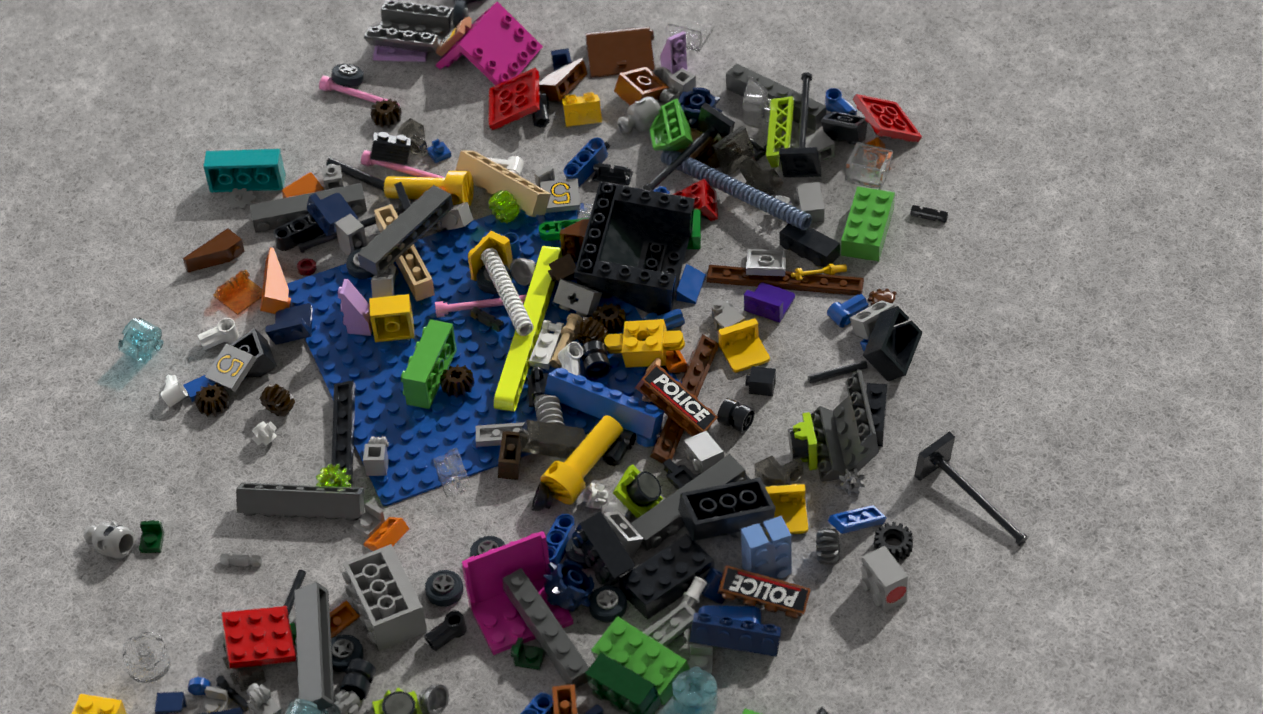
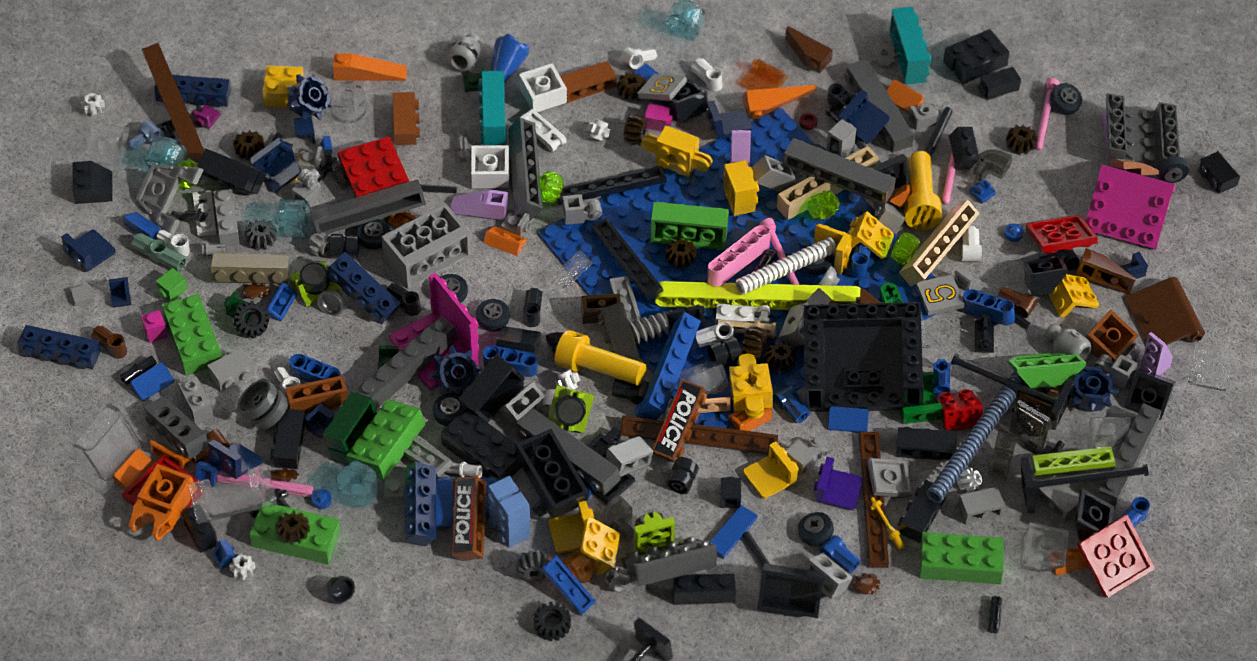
camera: 75 degrees right, 5 degrees up
(96, 640) = (362, 68): none -> orange slope
(135, 501) = (508, 55): none -> blue cone
(135, 687) = (308, 97): none -> dark blue brick
(186, 607) = (405, 118): none -> dark orange brick
(190, 473) = (543, 88): none -> white brick
(191, 437) = (589, 81): none -> dark orange brick
(210, 517) = (492, 108): none -> teal brick
(227, 490) = (545, 131): none -> white plate
(261, 379) = (658, 117): none -> dark pink brick
(270, 123) = (976, 56): none -> black piece
(287, 531) = (490, 166): none -> white brick
(311, 117) = (999, 83): none -> black brick
(327, 362) = (677, 151): none -> yellow brick
(336, 546) = (483, 204): none -> lavender slope
(429, 661) = (363, 288): none -> dark blue brick
(432, 258) = (823, 205): none -> clear neon green gear
(452, 424) = (627, 259): none -> black tile
(470, 232) = (871, 234): none -> yellow bracket
(479, 329) = (738, 255): none -> bright pink beam
(495, 137) = (1014, 232): none -> blue tile
(496, 517) = (532, 307): none -> black piece
(532, 524) = (518, 338): none -> black tile
(562, 115) = (1044, 274): none -> black slope
(576, 145) = (1023, 304): none -> reddish brown piece
(623, 375) = (708, 375): none -> clear slope
(709, 71) = (1150, 390): none -> black slope
(732, 230) = (926, 443): none -> black brick
(805, 388) = (733, 530): none -> blue tile
(815, 330) = (815, 528): none -> black wheel
(819, 486) = (600, 544): none -> yellow bracket
(832, 504) = (580, 566): none -> clear orange brick
(884, 579) = (498, 612): light grey brick -> none

